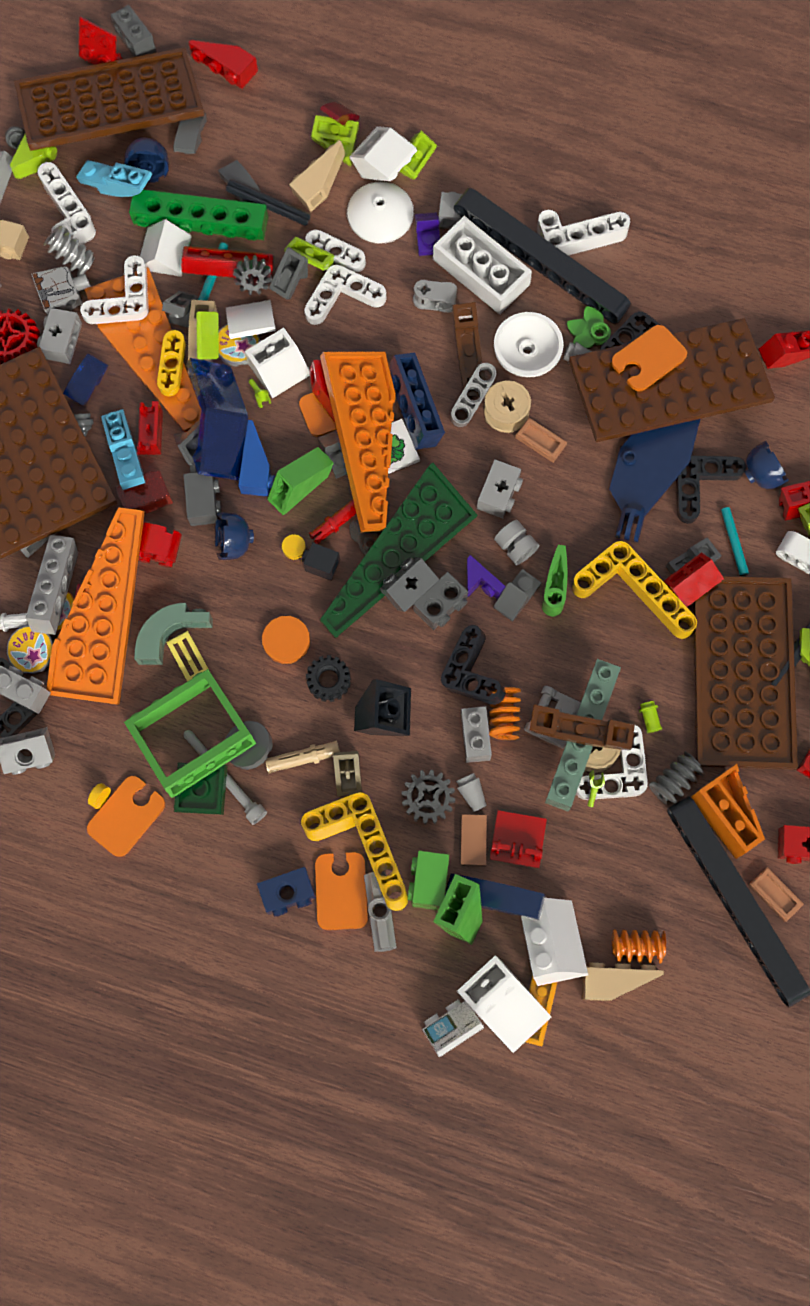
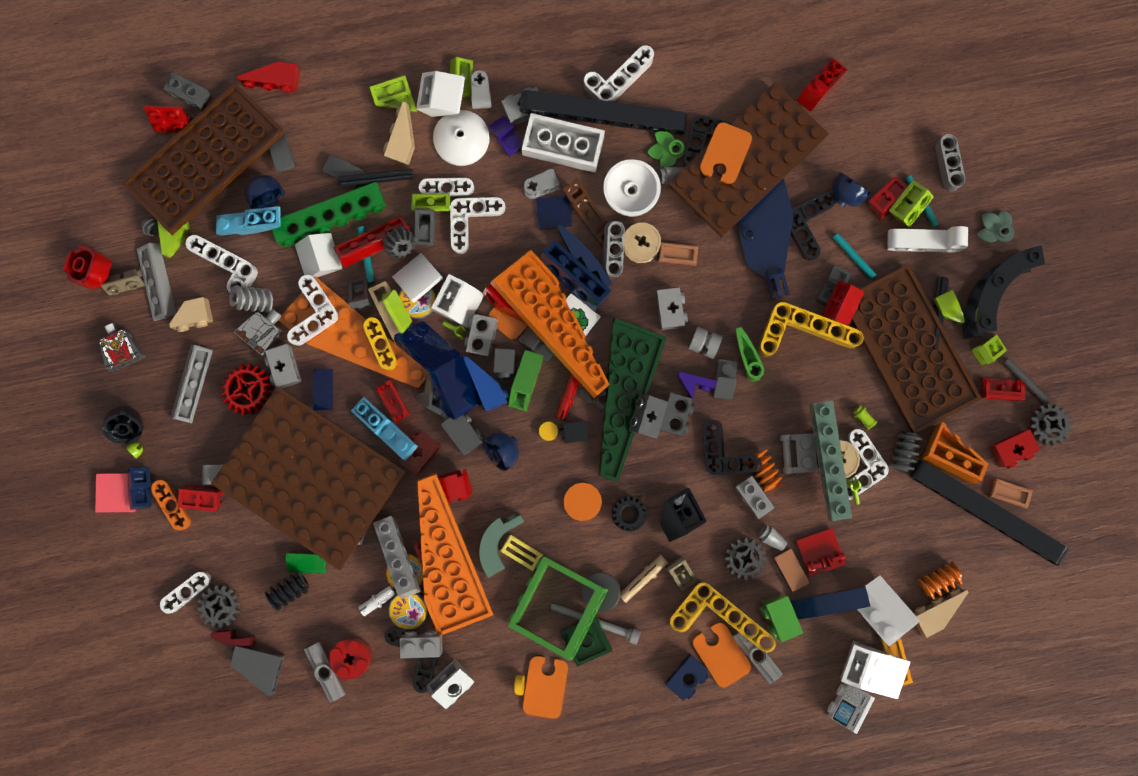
camera: 30 degrees left, 10 degrees up
(85, 422) = (341, 421): dark grey plate -> none
(287, 413) = (487, 336): none -> light grey brick
(287, 445) = (505, 363): none -> dark grey brick
(339, 112) = (387, 76): dark red slope -> none
(426, 175) = (480, 92): none -> light grey piece
(432, 332) = (553, 212): none -> clear blue piece
(437, 386) = (581, 252): none -> dark blue slope
(461, 910) = (814, 628): bright green slope -> none
(581, 729) = (833, 461): reddish brown slope -> none

